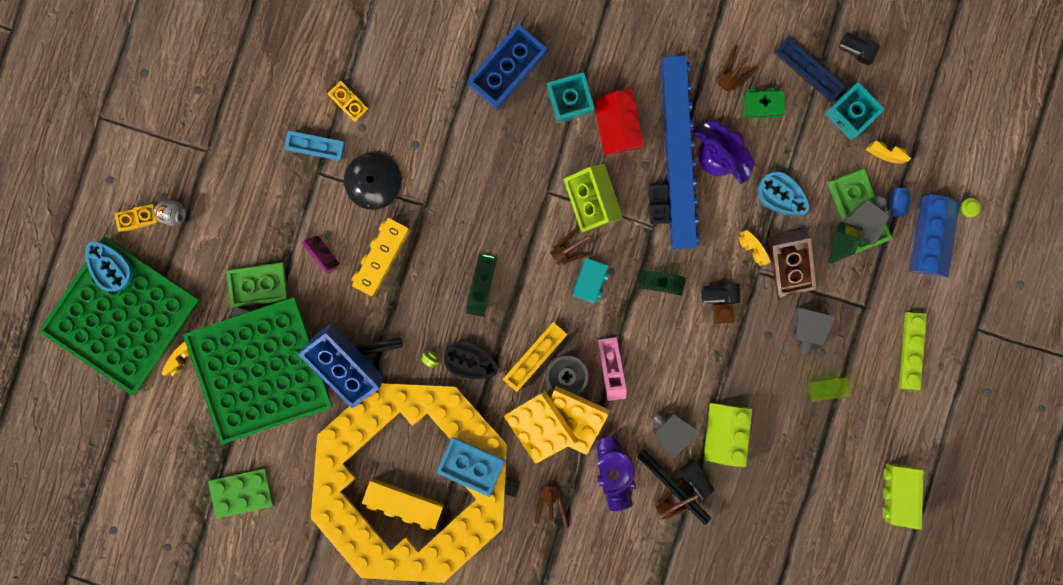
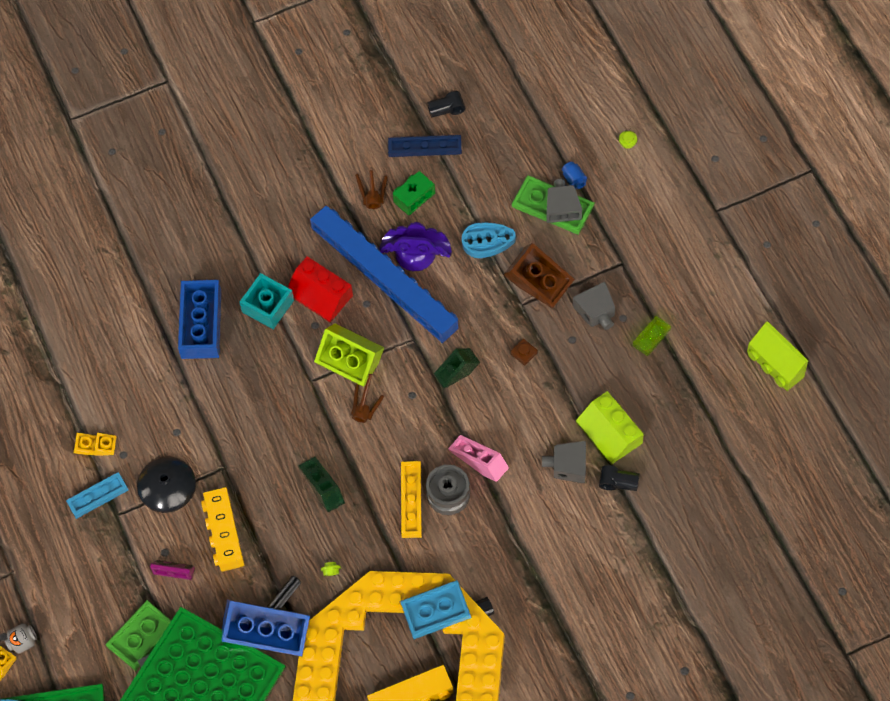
camera: 35 degrees left, 25 degrees down
(471, 350) = (356, 537): black piece -> none
(540, 427) = (462, 540): yellow plate -> none
(550, 493) = (519, 587): reddish brown plant -> none
(581, 416) = (482, 515): yellow plate -> none
(590, 281) = (401, 408): teal brick -> none
(617, 491) = (537, 516): dark purple piece -> none
(658, 203) = (401, 319): black slope -> none
(667, 510) = (617, 520): reddish brown plant -> none
(673, 486) = (607, 498): black axle -> none
(727, 294) = (511, 335): black piece -> none
(749, 241) = (495, 287): yellow slope -> none
(846, 242) = (560, 226): clear green slope -> none
(854, 111) = (482, 144): teal brick -> none
(893, 155) = (541, 149): yellow slope -> none
(912, 351) = (685, 262): lime plate -> none
(934, 236) = (621, 176): blue slope -> none

